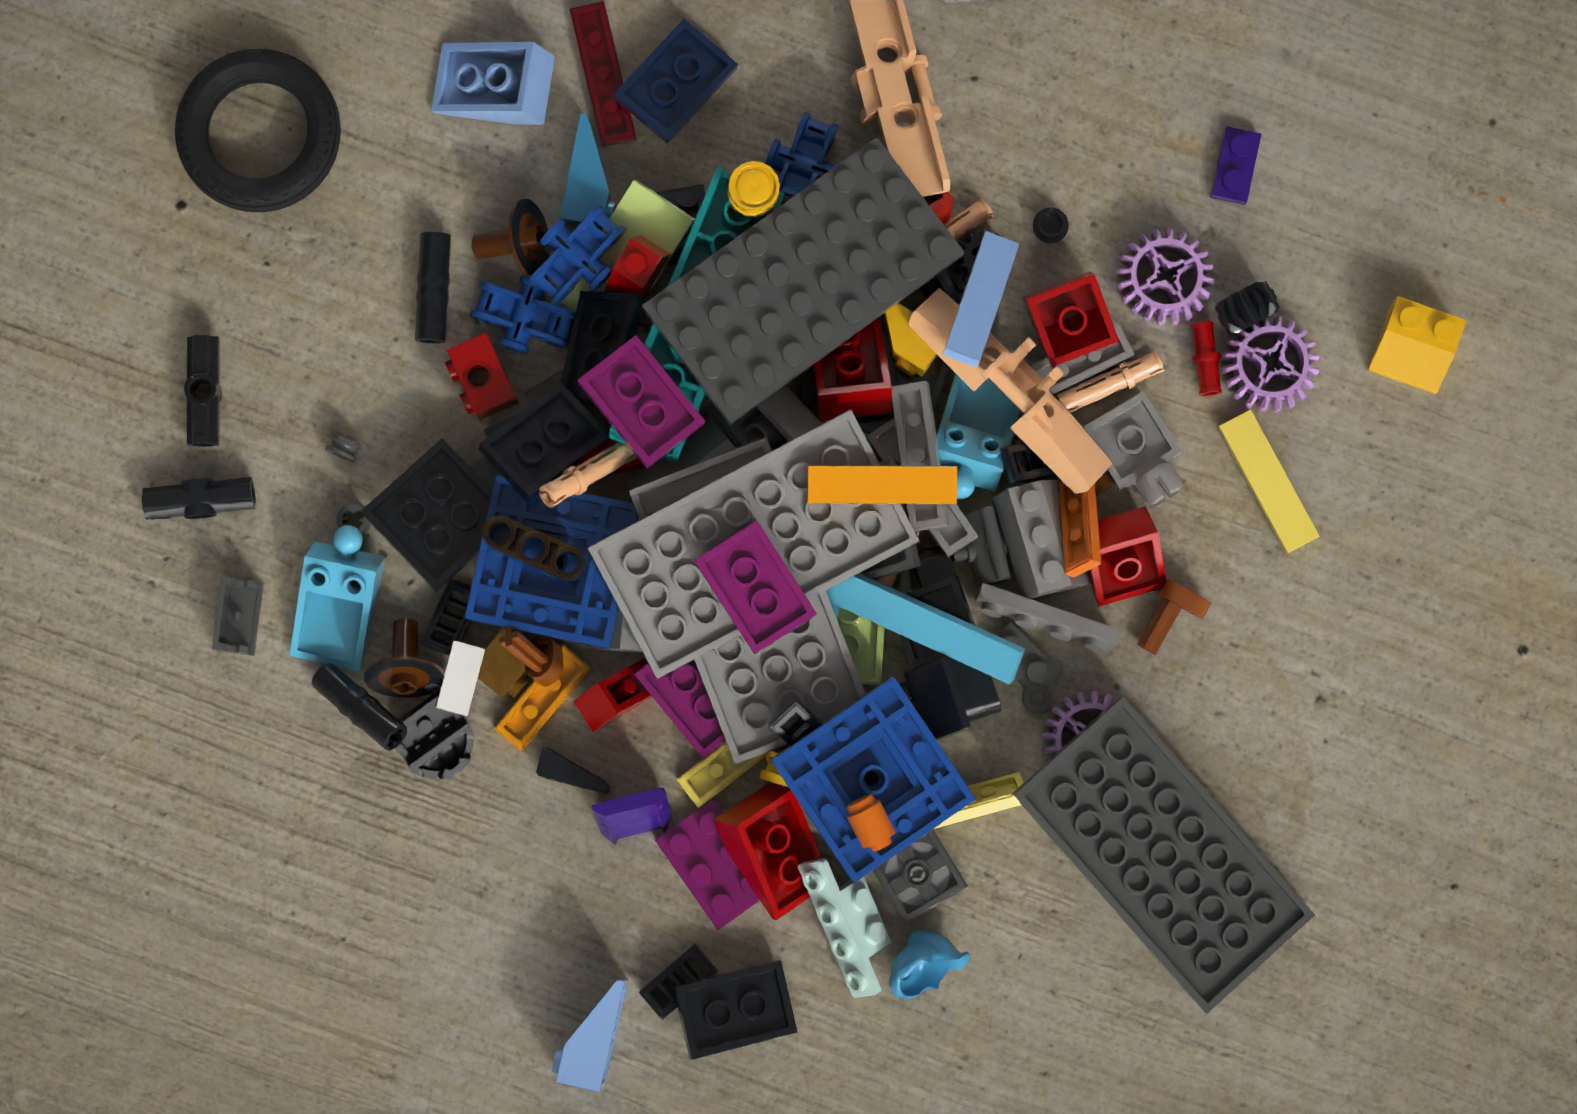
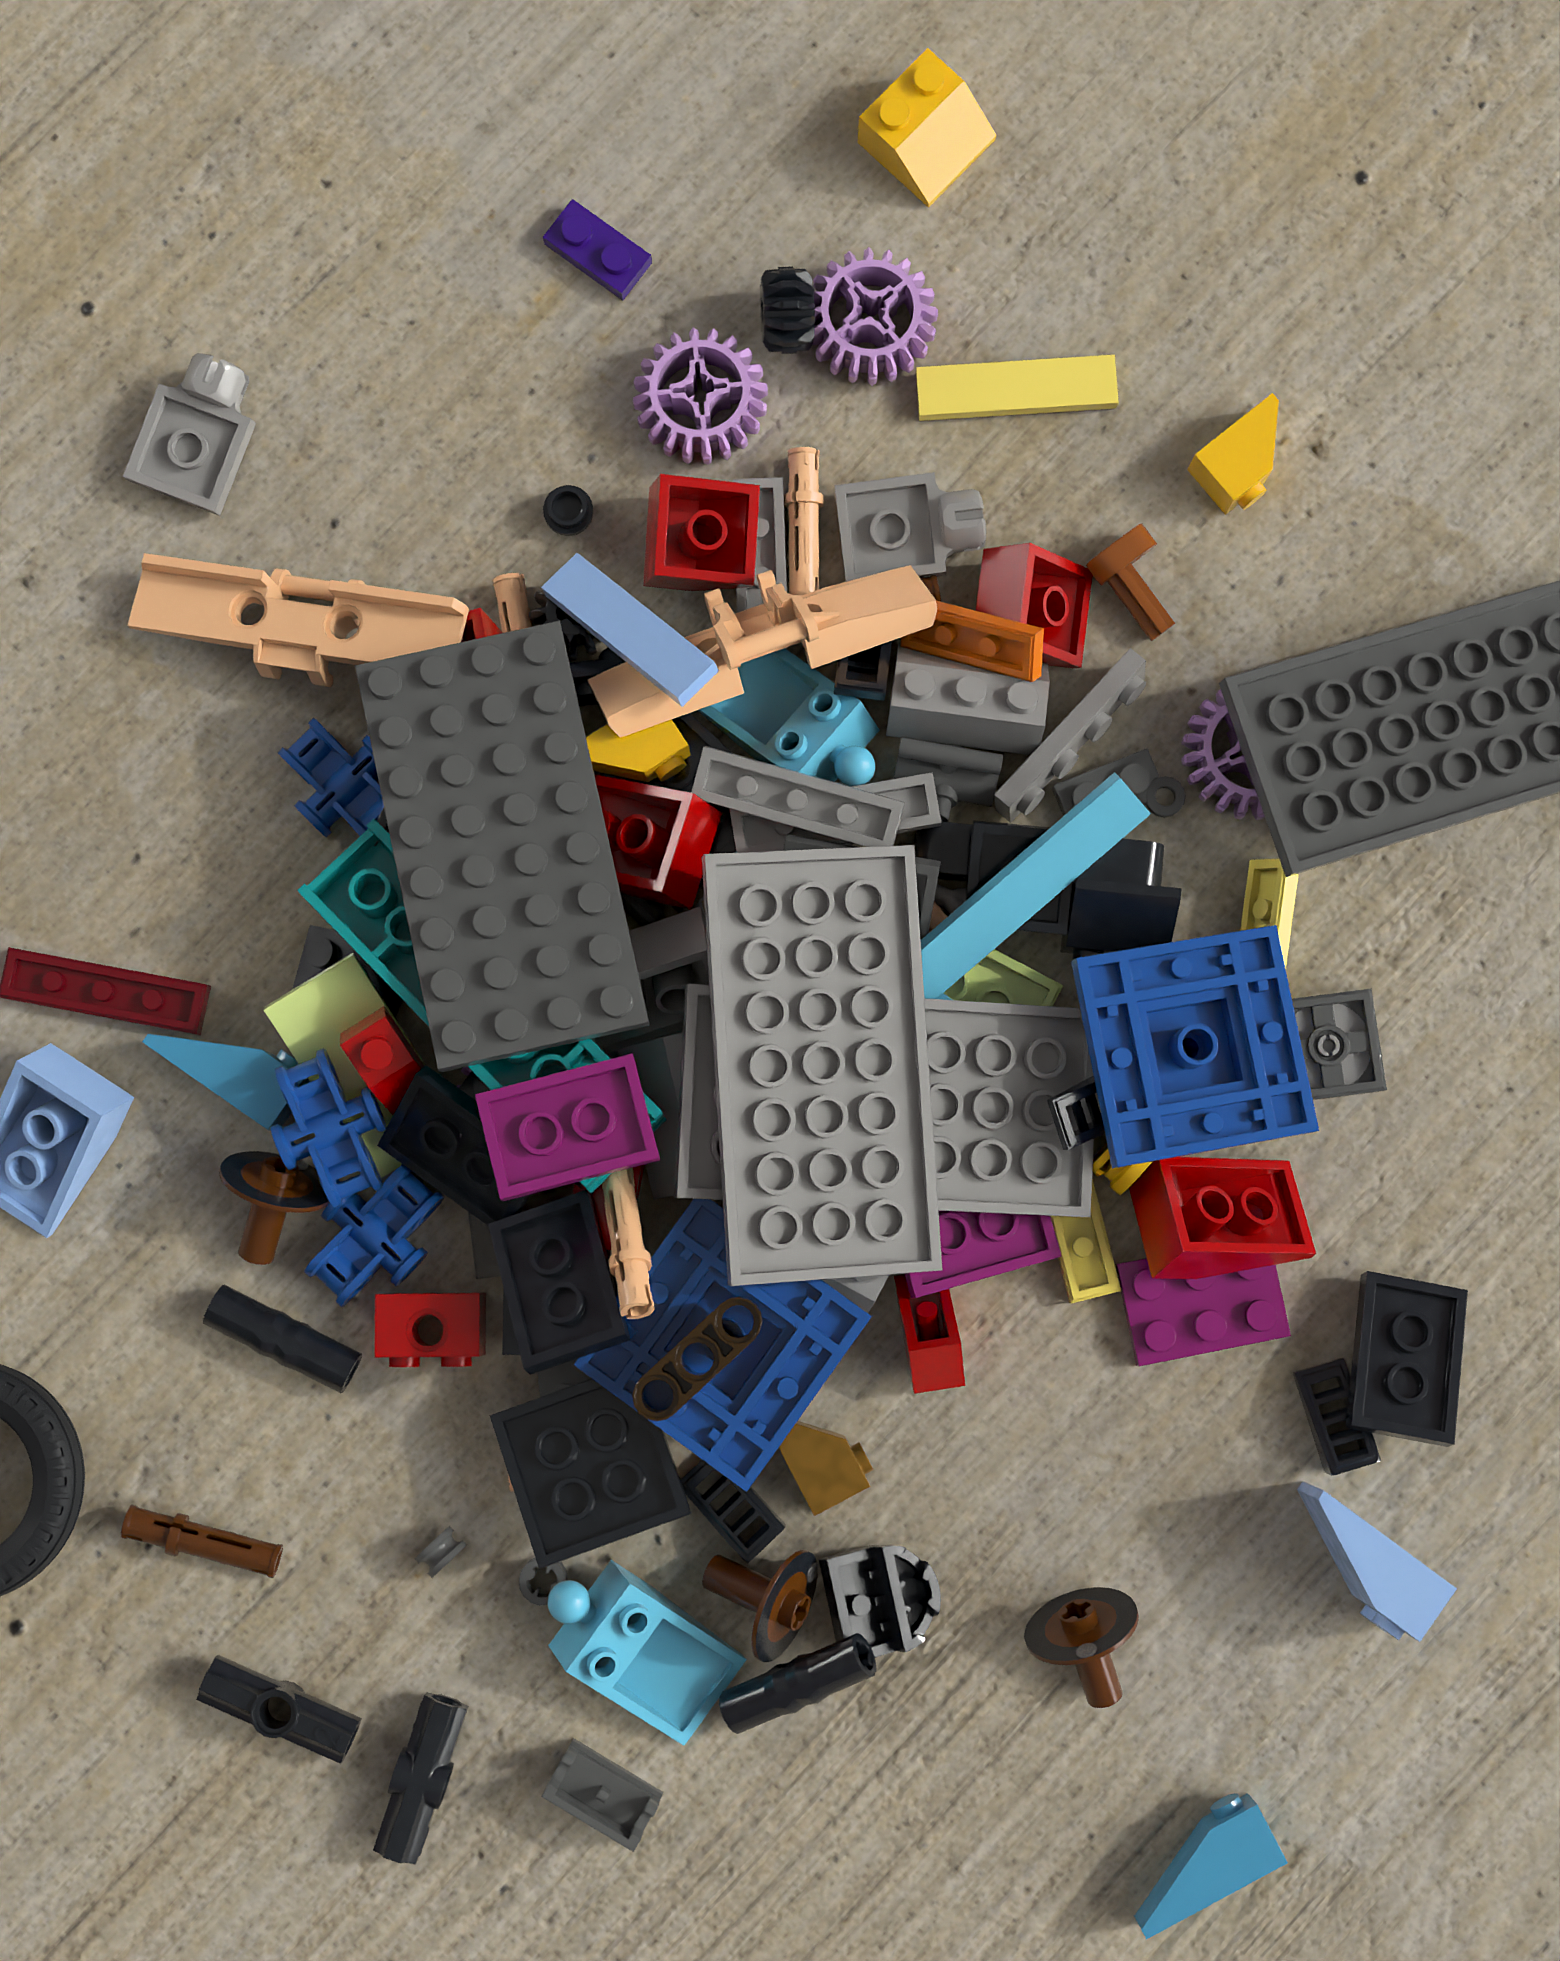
camera: 65 degrees left, 0 degrees up
(282, 280) = (183, 1536): none -> reddish brown pin
(366, 1023) = (1216, 1860): none -> dark azure slope
(460, 678) = (819, 1530): white sticker -> none
(470, 873) = (1082, 1632): none -> piece
(540, 655) = (846, 1415): dark orange piece -> none
(541, 702) = (888, 1431): light orange tile -> none
(560, 769) = (997, 1446): black slope -> none
(633, 814) = (1093, 1379): dark purple slope -> none
(675, 81) = (158, 900): dark blue plate -> none
(753, 189) = (350, 854): yellow wheel -> none
(755, 586) = (882, 1085): magenta plate -> none
(849, 923) = (1358, 1161): light aqua bracket -> none
(870, 823) = (1256, 1073): orange brick -> none
(882, 484) = (821, 858): light orange tile -> none
(924, 963) = (1447, 1087): dark azure hair -> none
(1206, 358) = (826, 393): red pin -> none
(1284, 649) = (1239, 458): none -> yellow slope

